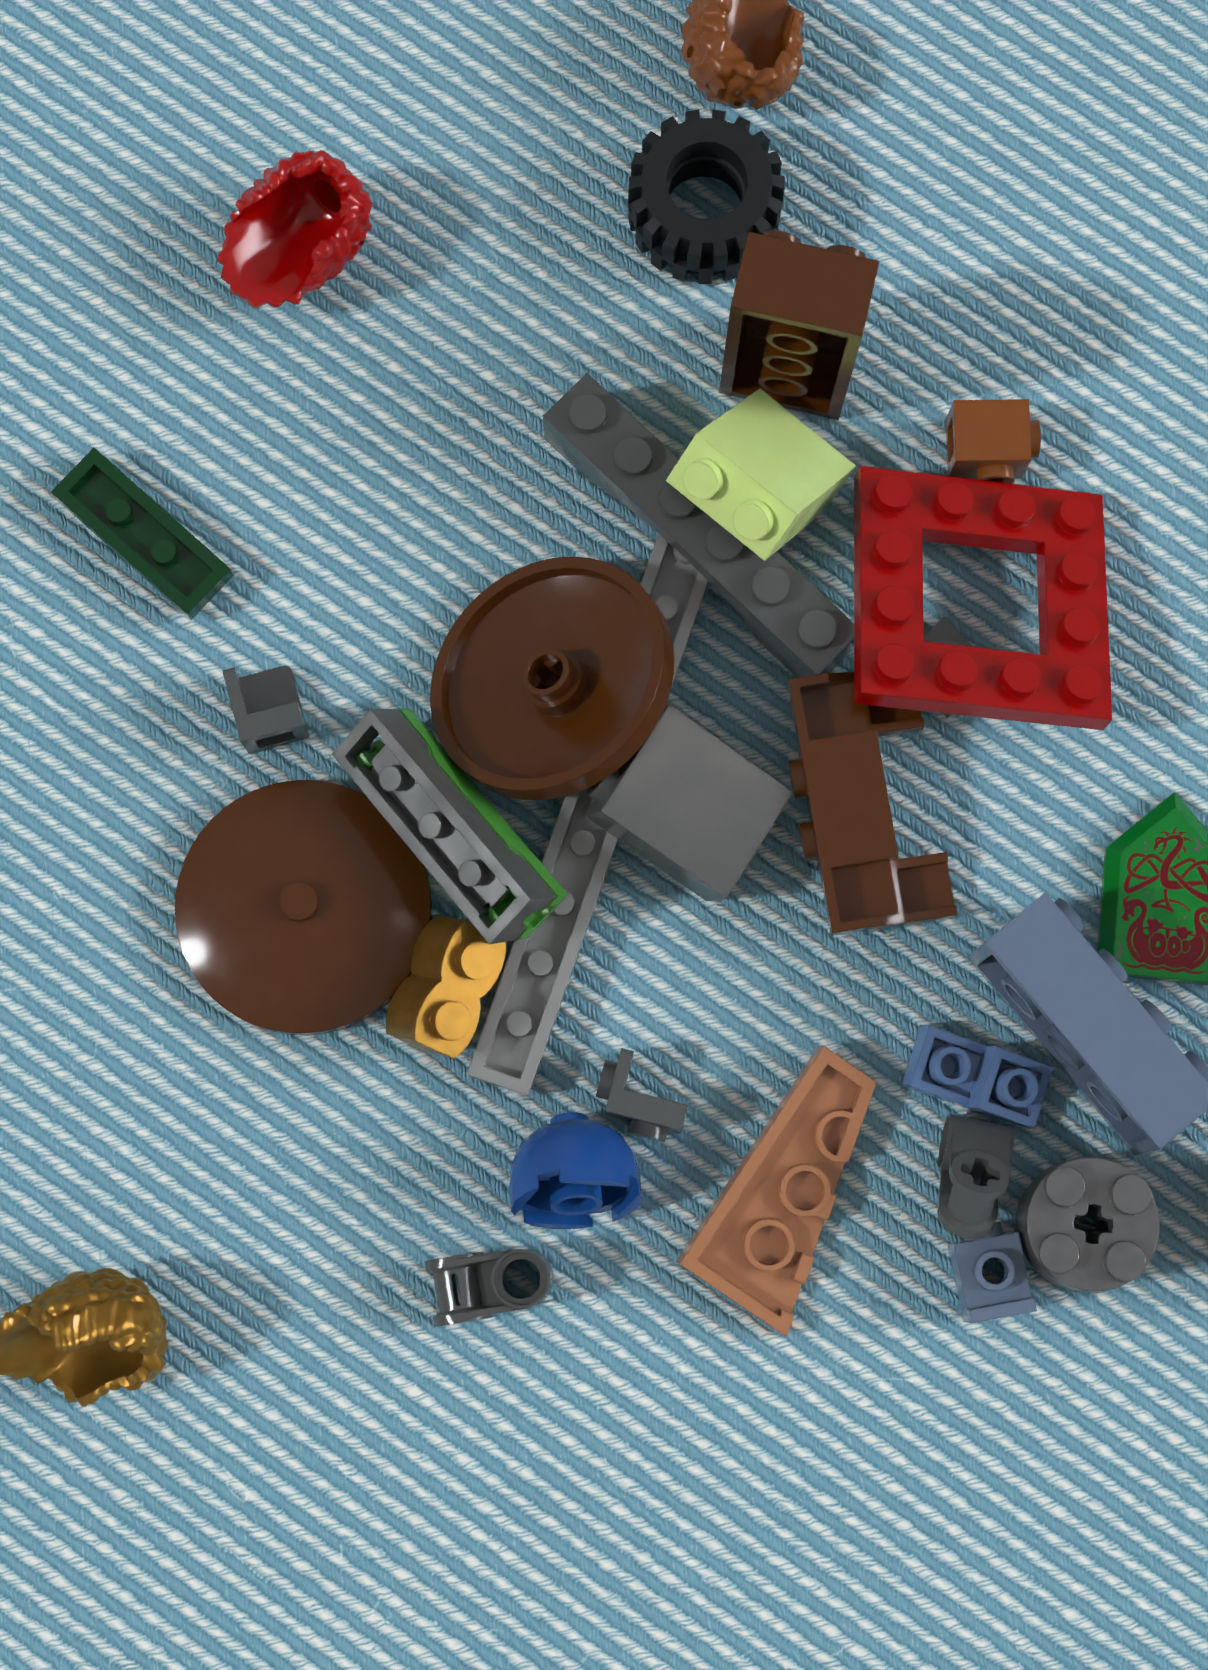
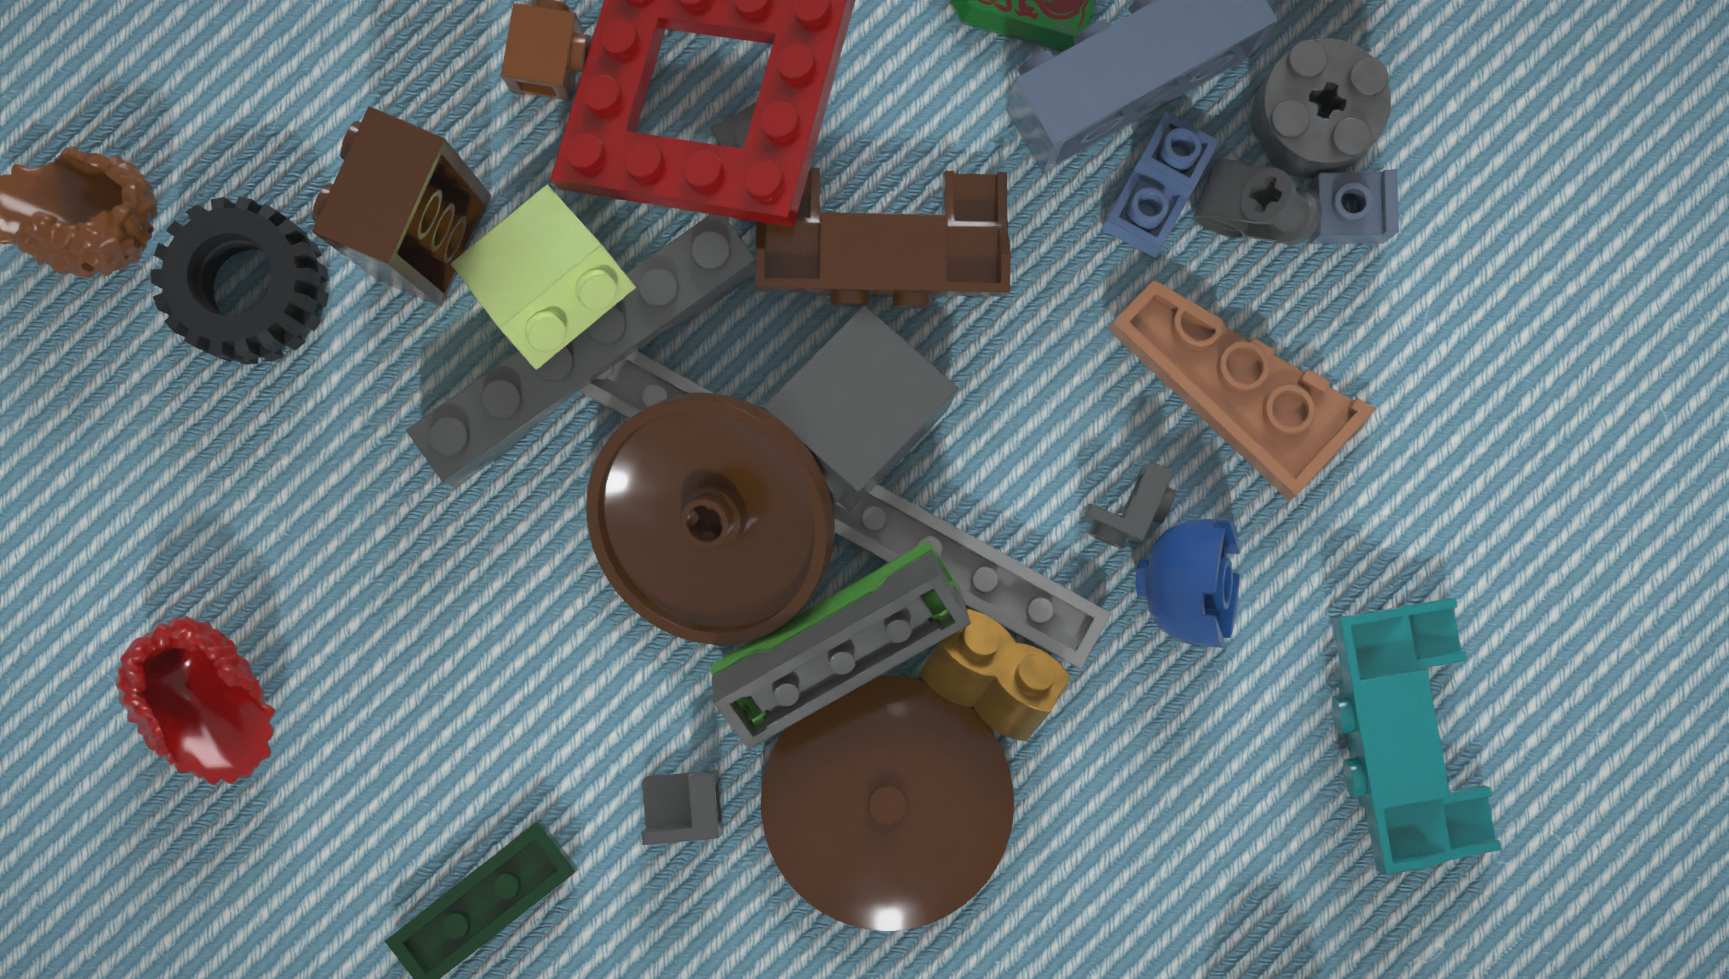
camera: 80 degrees left, 5 degrees up
(446, 1406) = (1396, 738): none -> teal bracket
(483, 1285) = (1283, 686): dark grey piece -> none

